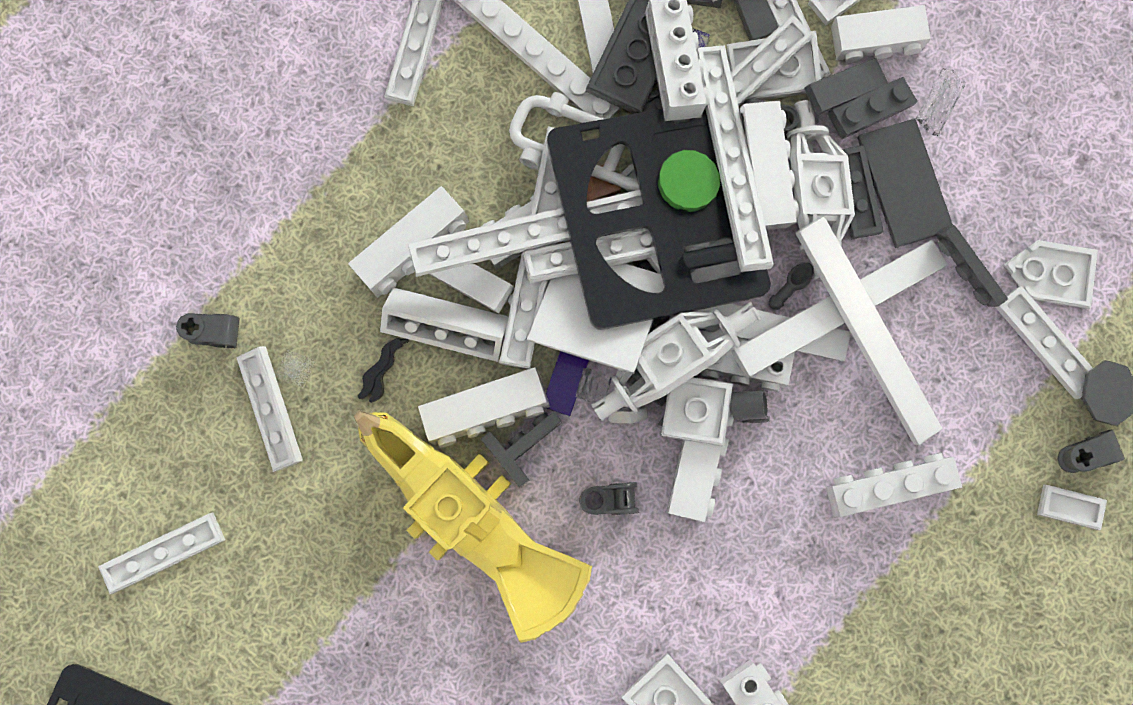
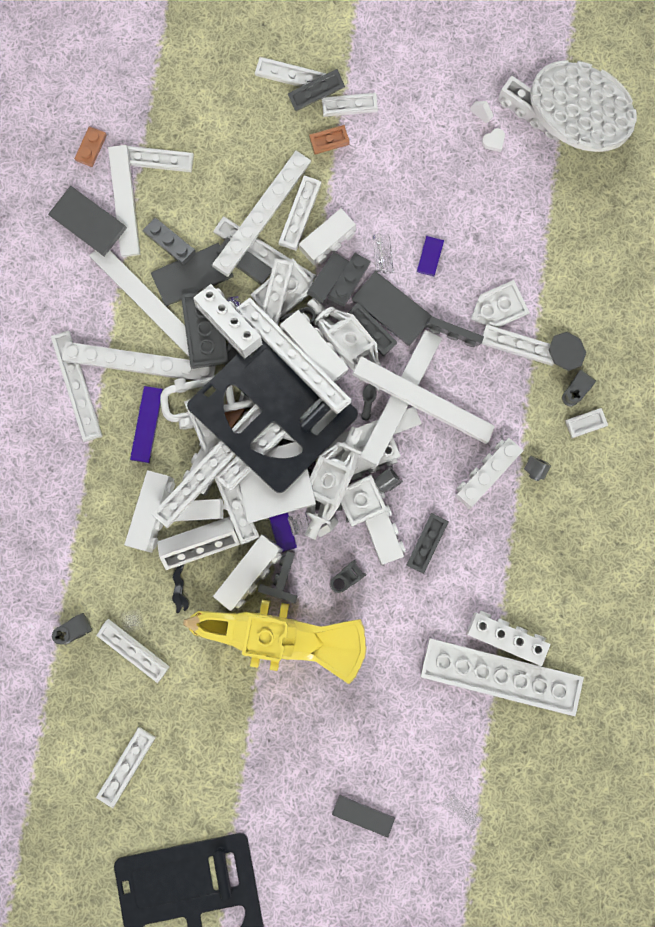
camera: 35 degrees left, 0 degrees up
(479, 128) = (146, 425): none -> dark purple tile
(688, 180) = (278, 382): bright green tile -> none
(747, 525) = (427, 543): none -> dark grey plate
(964, 524) = (537, 468): none -> dark grey plate
(1003, 146) = (430, 256): none -> dark purple tile

